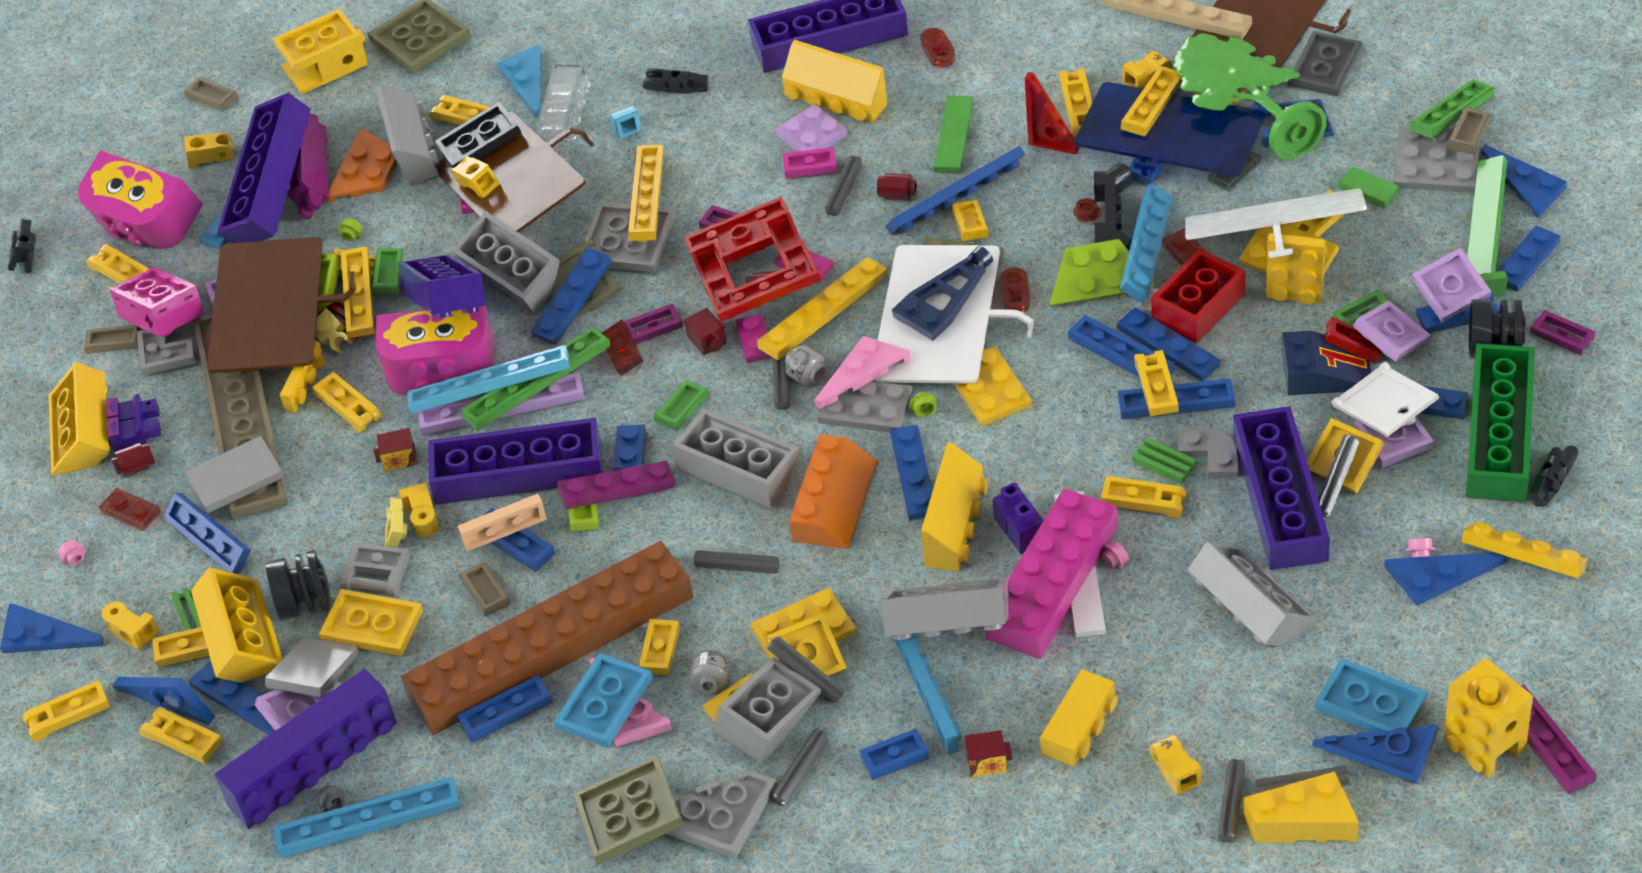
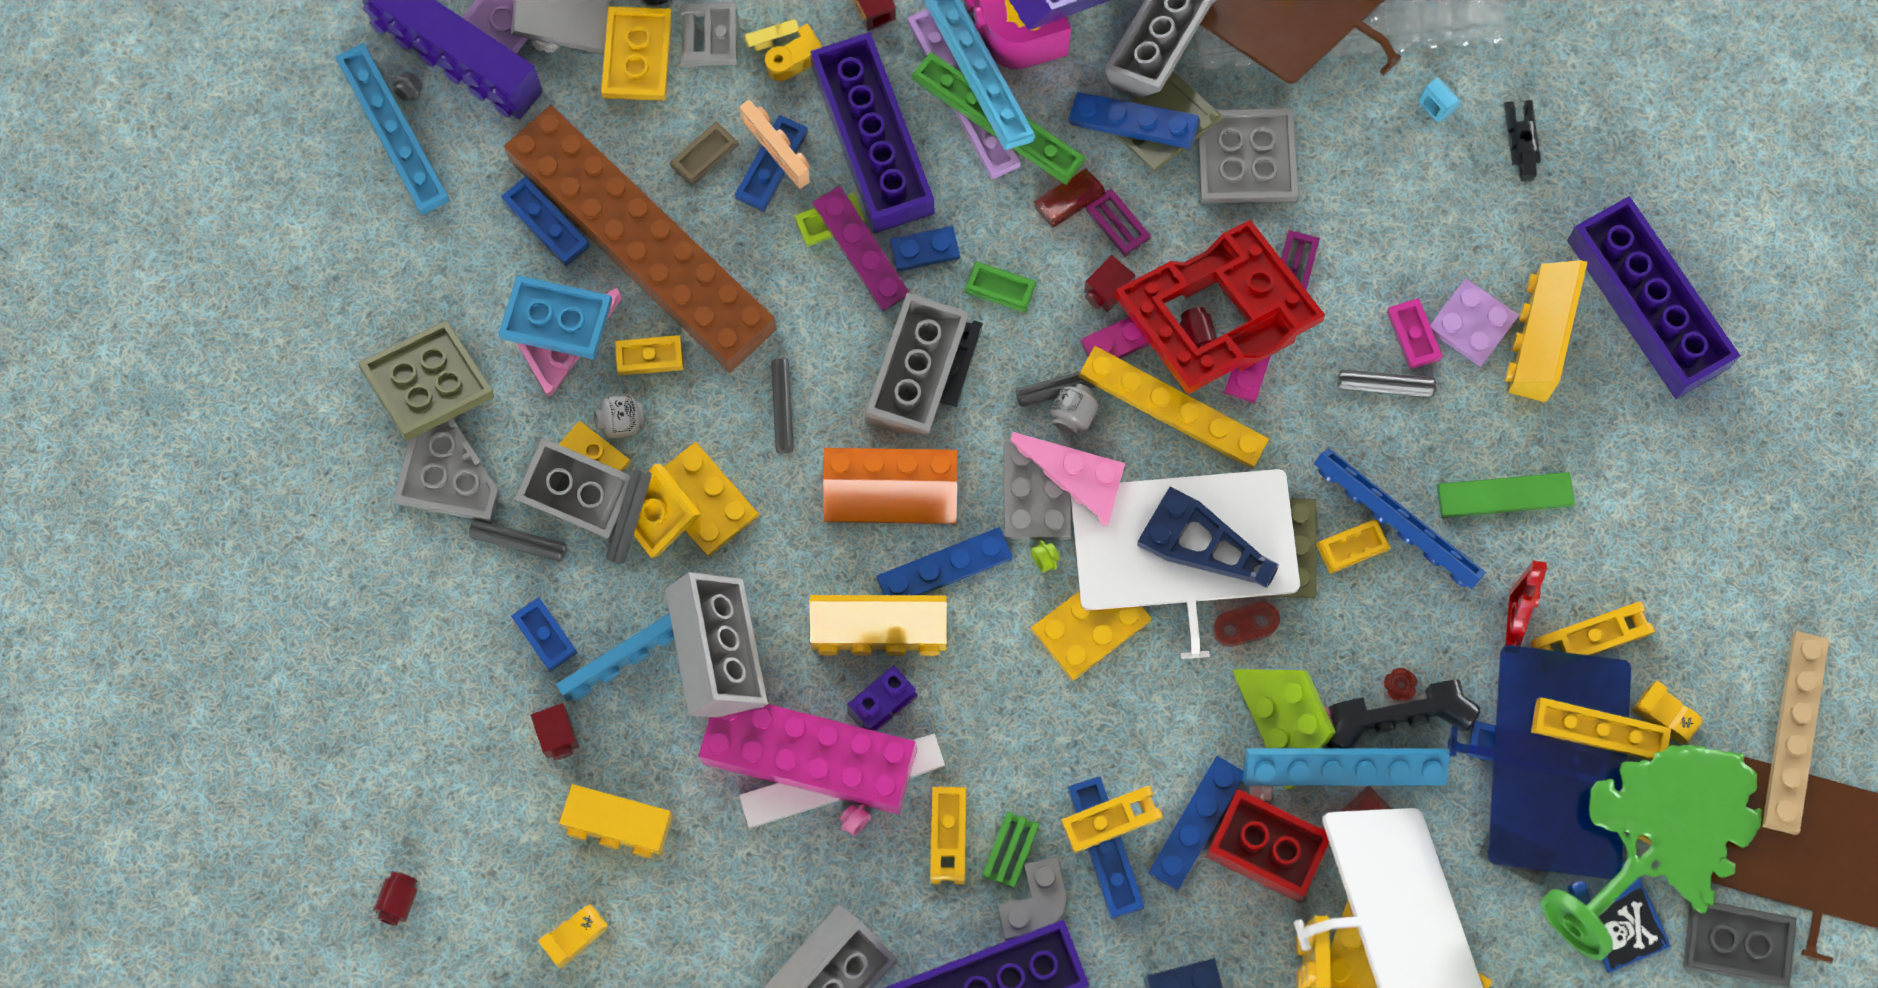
camera: 70 degrees right, 25 degrees up
(646, 193) = (1311, 157): yellow plate -> none
(896, 186) = (1393, 446): dark red brick -> none
(937, 47) = (1654, 442): clear red plate -> none
(1109, 344) = (1176, 760): blue plate -> none

